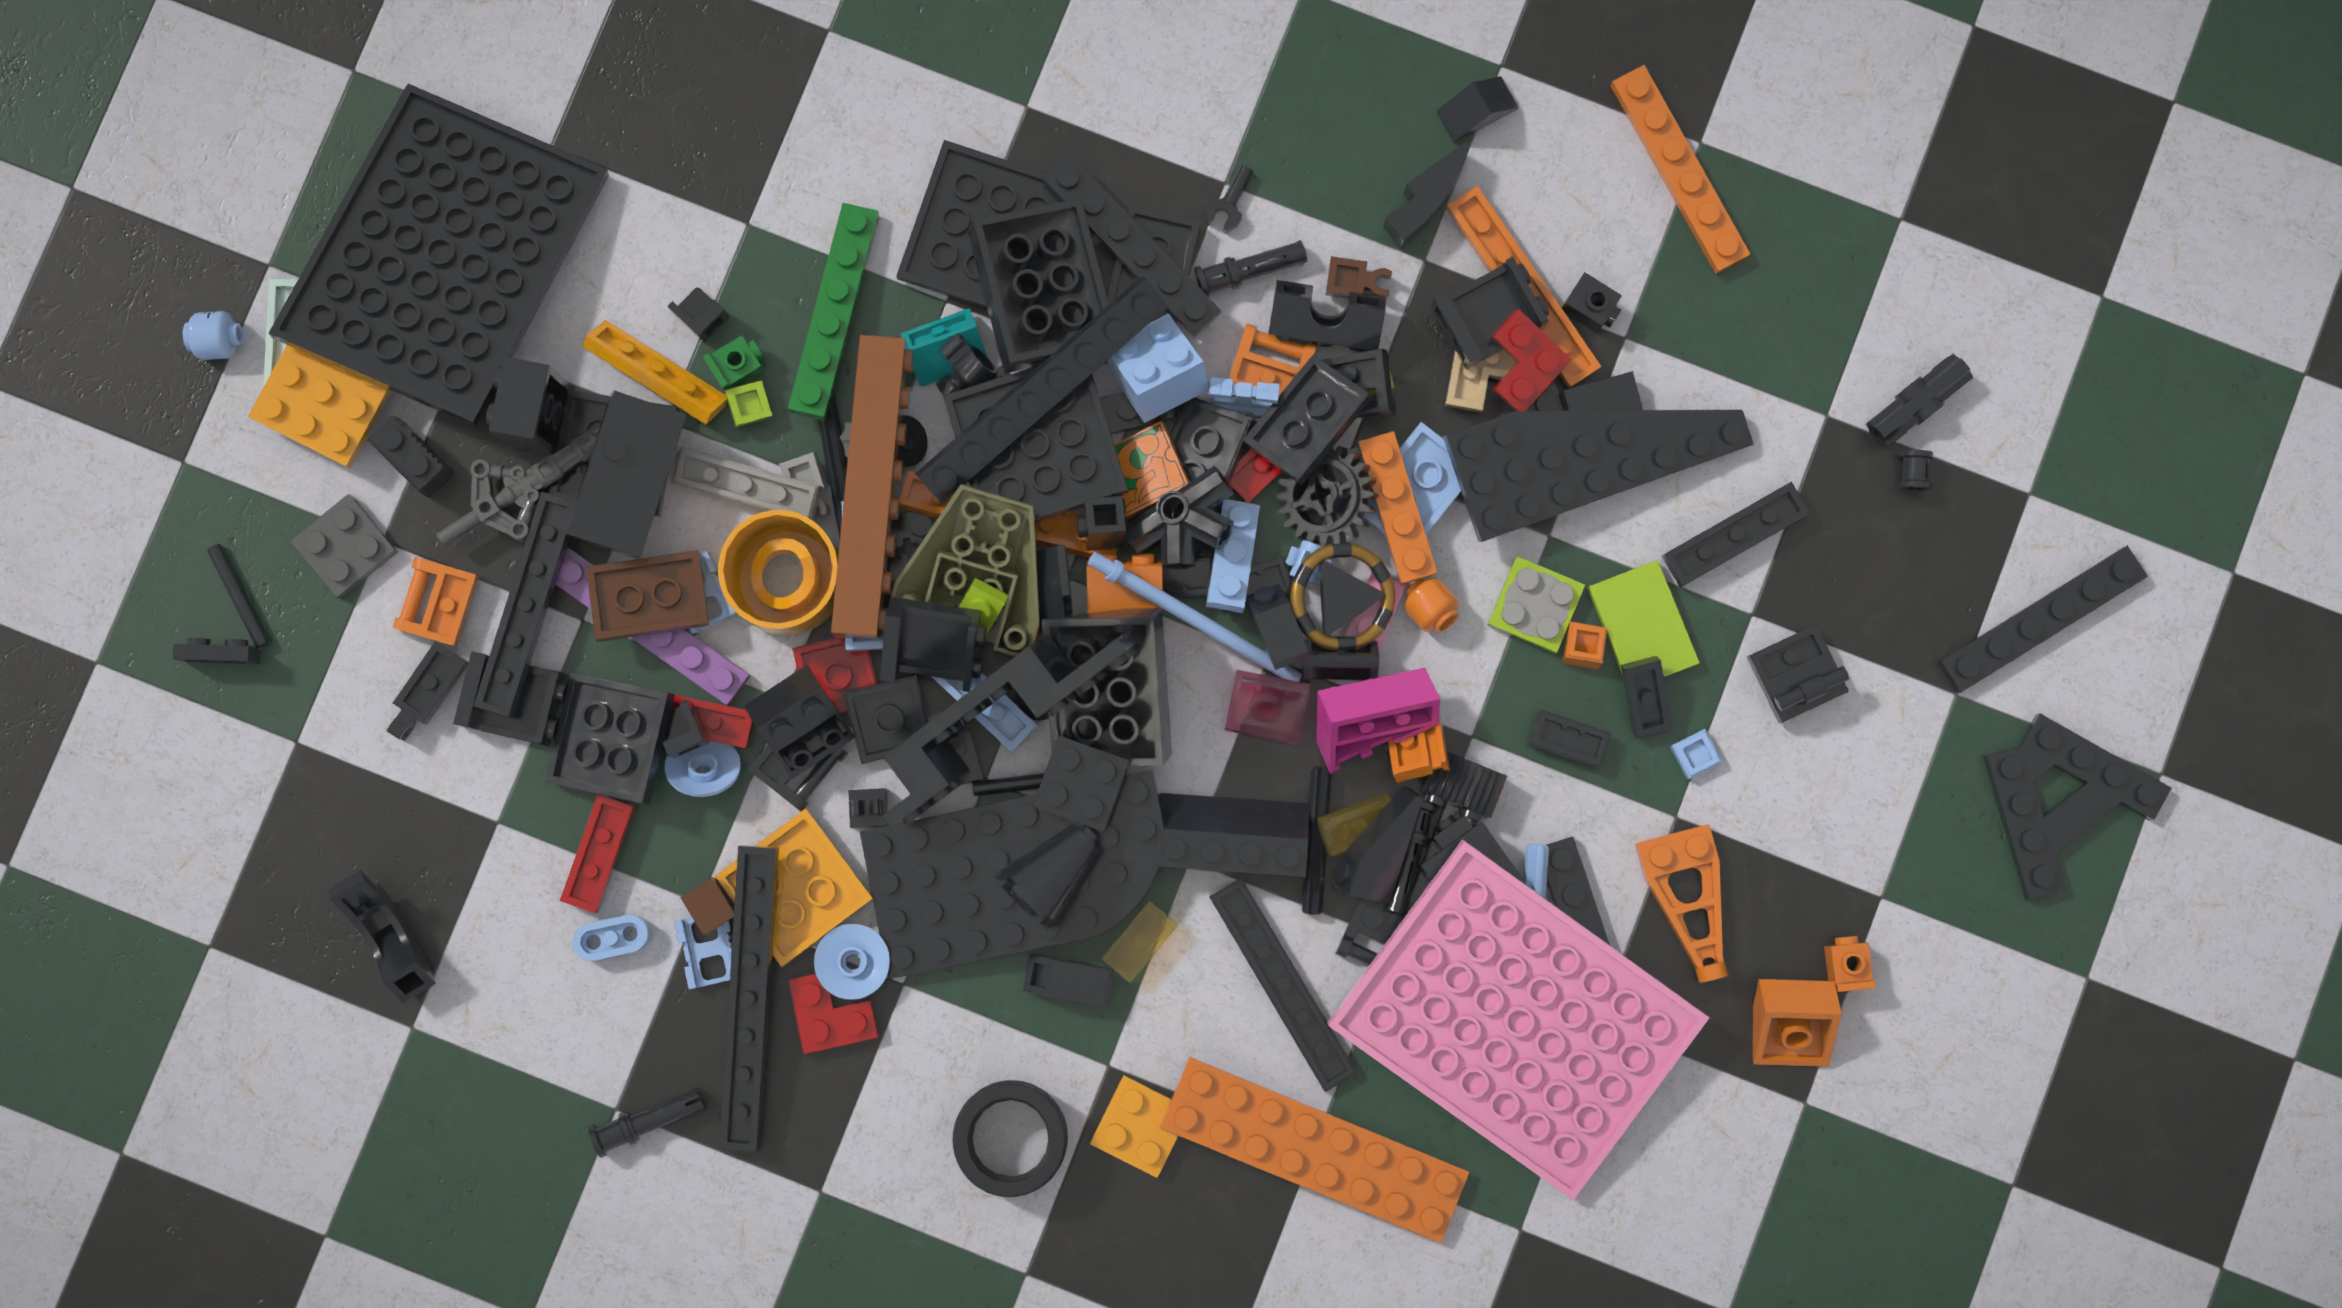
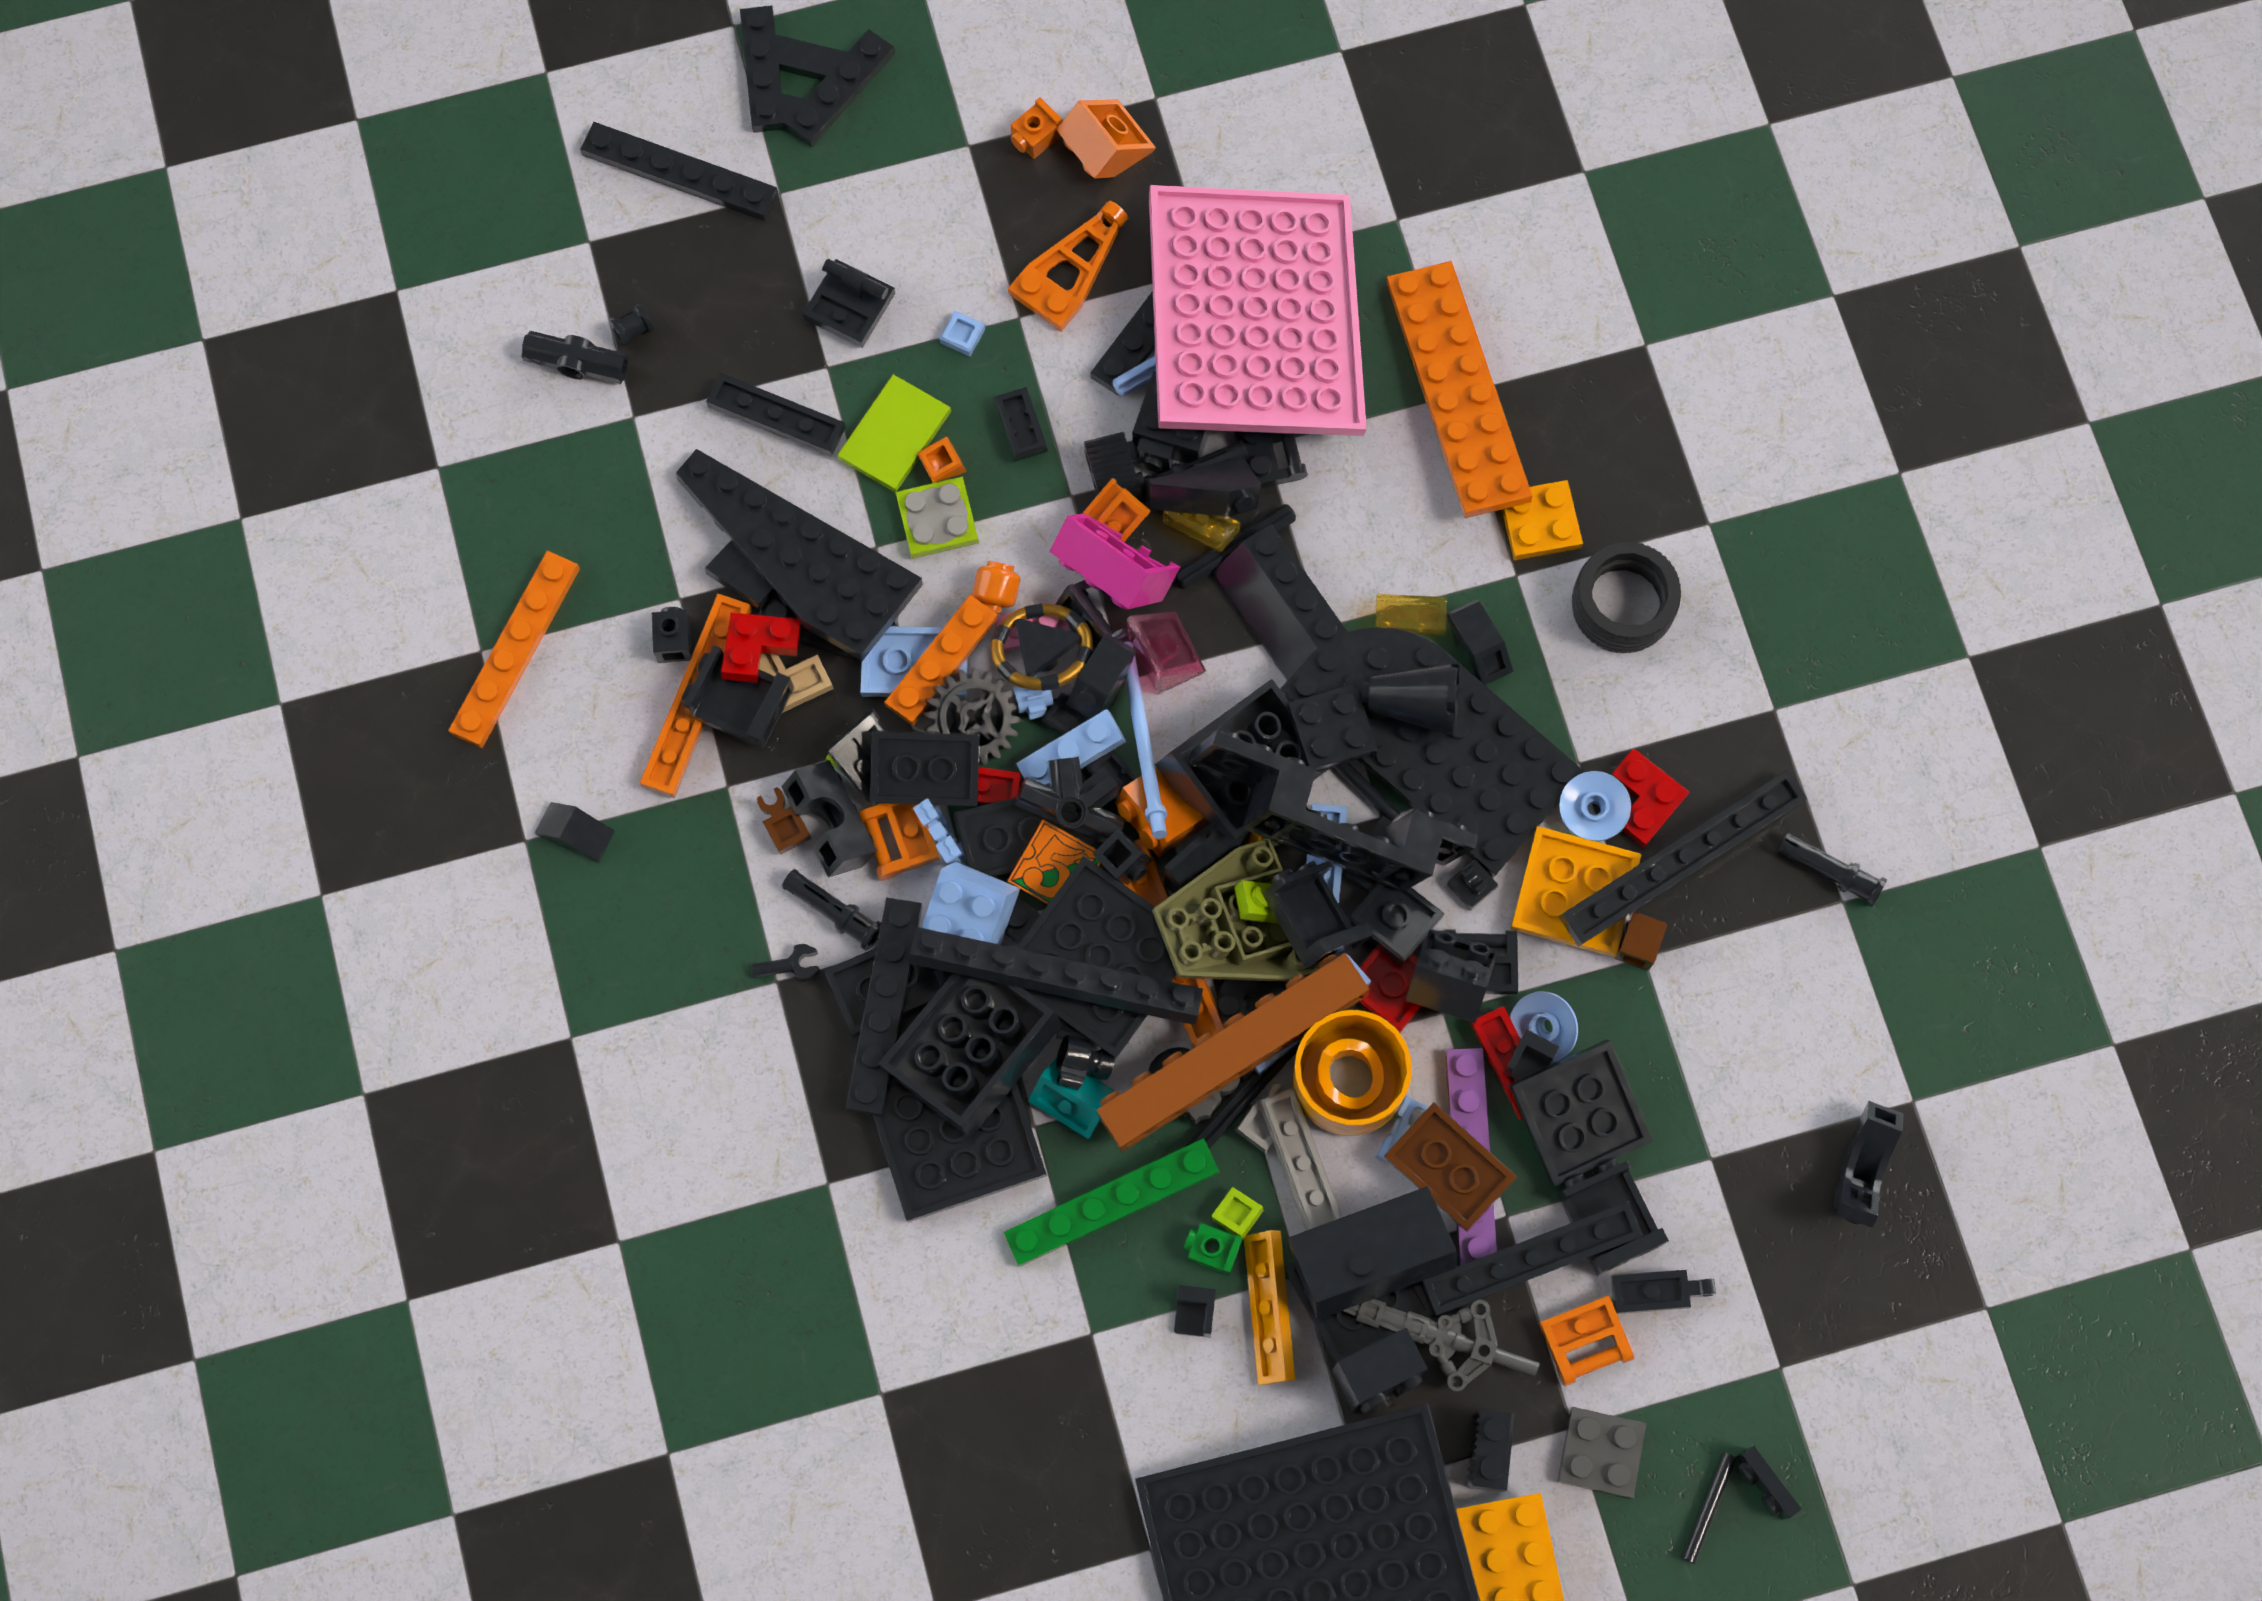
camera: 125 degrees left, 10 degrees down
(597, 853) = (1674, 1057): red plate -> none
(612, 937) = (1726, 996): light blue plate -> none
(695, 952) = (1681, 929): light blue piece -> none
(1283, 985) = (1358, 496): black tile -> none
(1425, 197) = (675, 814): black slope -> none
(1646, 696) = (948, 389): black plate -> none

